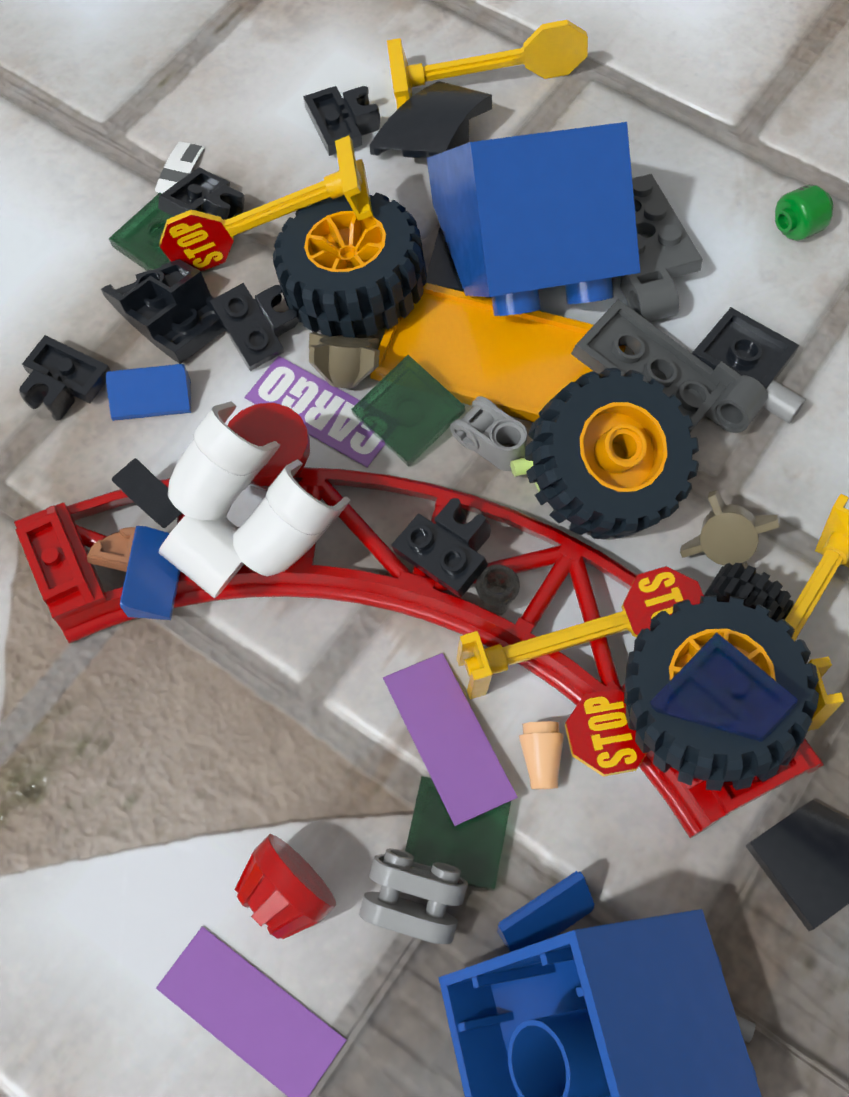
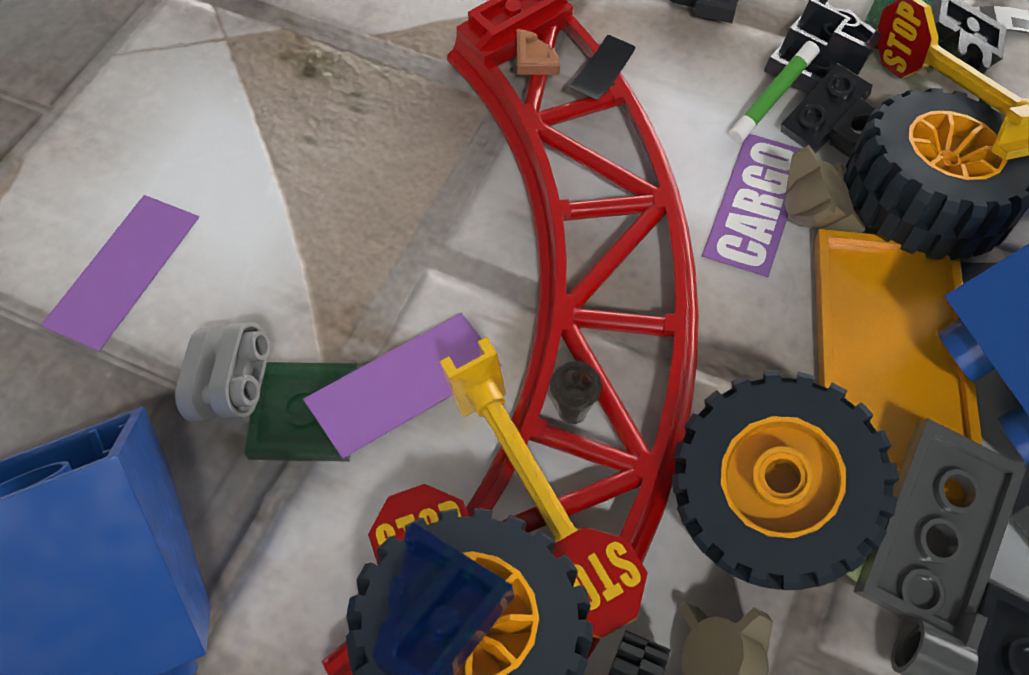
camera: 75 degrees right, 5 degrees down
(148, 392) = (721, 53): blue slope -> none
(149, 578) = (515, 83): blue slope -> none
(204, 488) = (586, 107): white piece -> none
(214, 360) = (774, 92): none -> bright green bar
(269, 423) = (672, 133): red piece -> none
(283, 889) = (226, 257): red piece -> none
(408, 410) = (781, 274): clear green tile -> none
(447, 548) = (612, 322): black plate -> none
(486, 430) = (784, 351): light grey piece -> none
(542, 753) = (395, 475): light nougat cone -> none
(547, 913) = (218, 509): blue slope -> none

